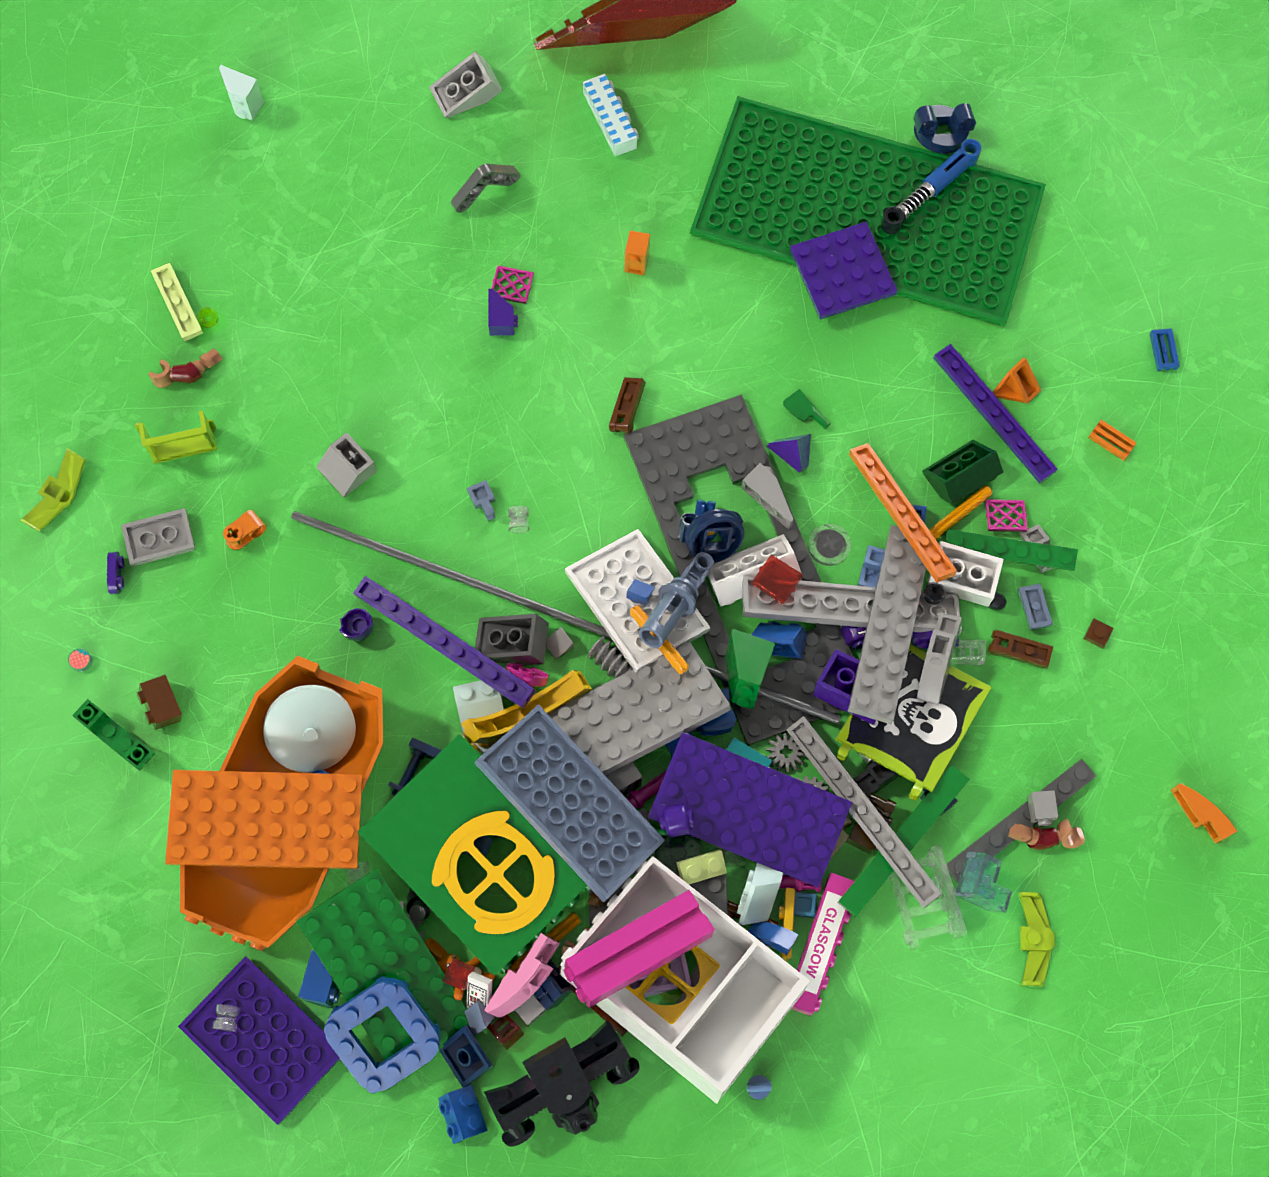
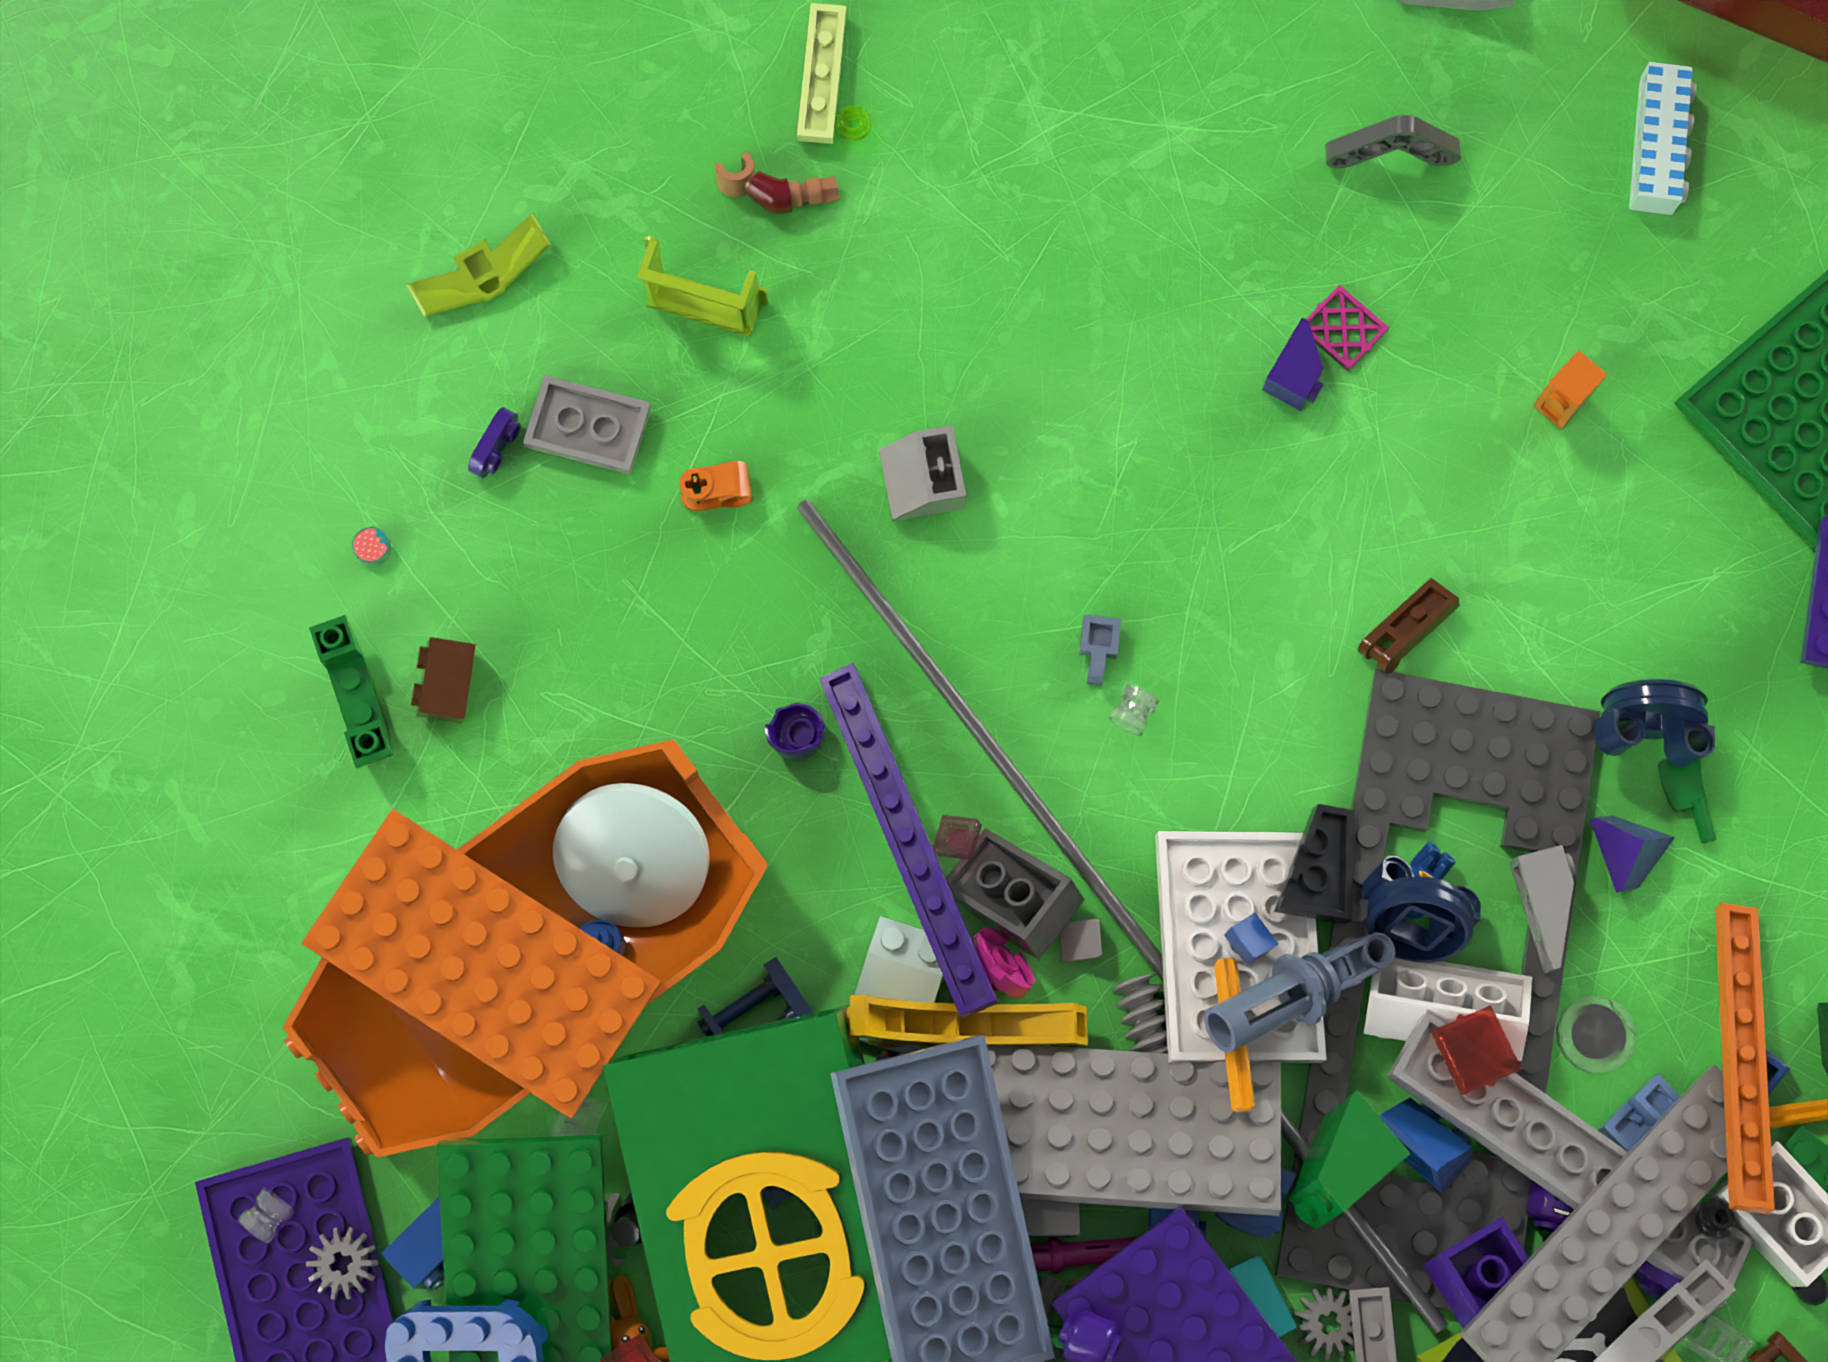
camera: 35 degrees right, 5 degrees up
(281, 1028) = (357, 1269): none -> light grey gear
(468, 628) = (957, 837): none -> plate
(654, 540) = (1322, 868): none -> black wing
(781, 379) = (1656, 711): none -> dark blue piece

